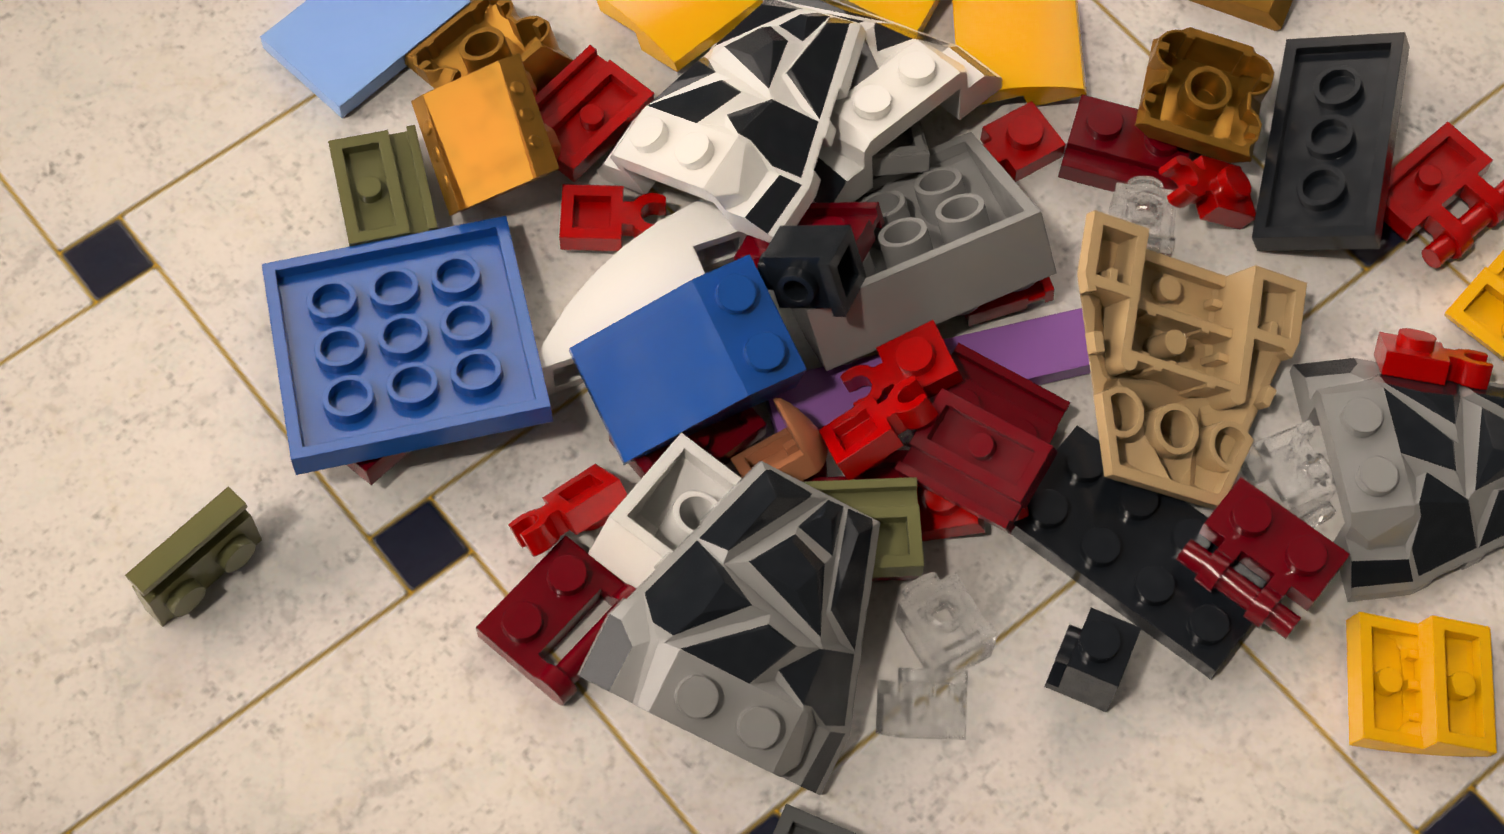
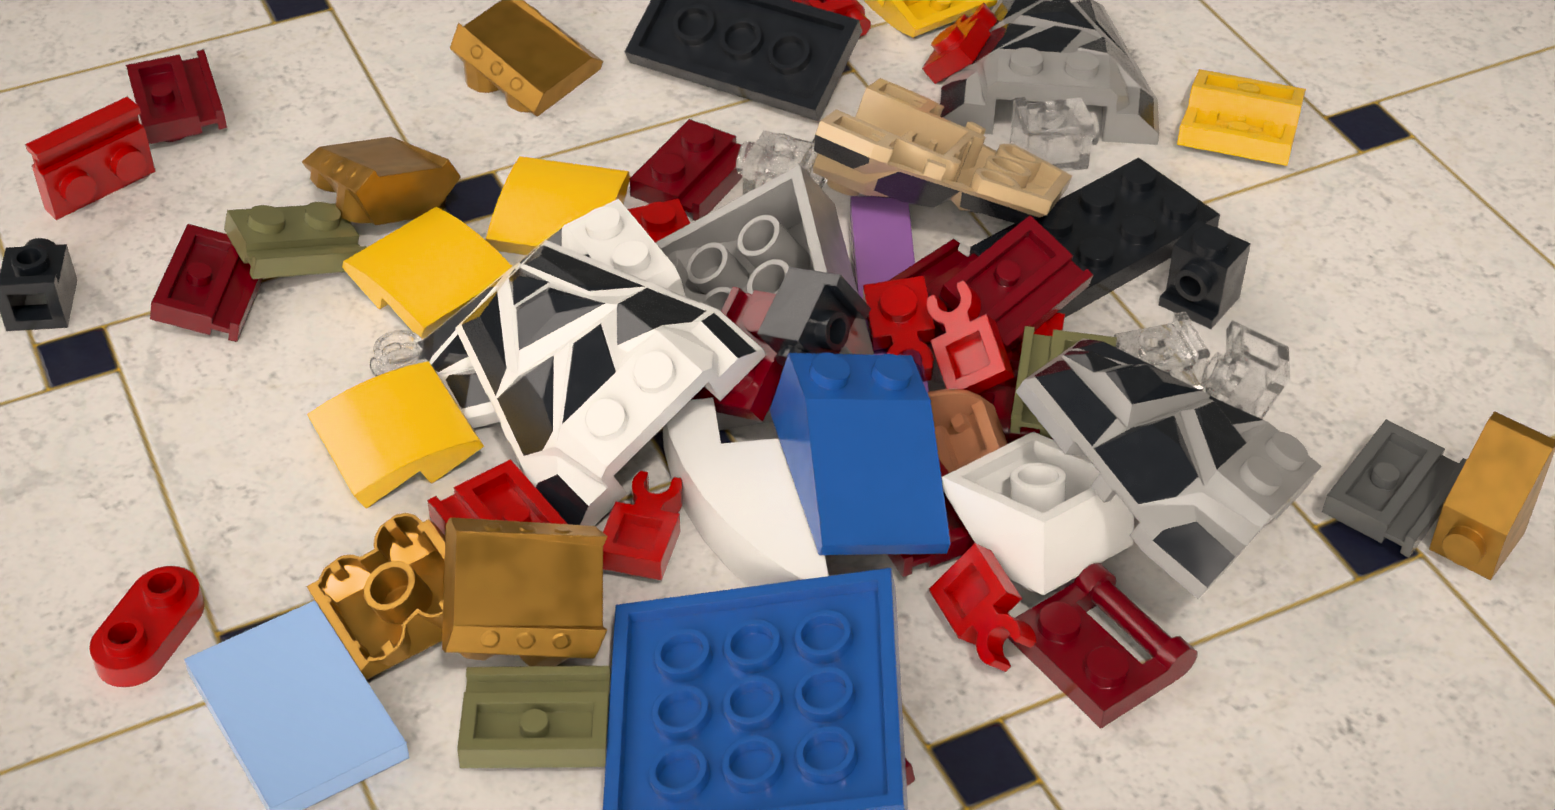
camera: 75 degrees left, 20 degrees down
(1204, 94) = (669, 95): pearl gold slope -> none
(1214, 186) = (764, 114): red plate -> none
(1273, 546) = (1132, 153): dark red plate -> none

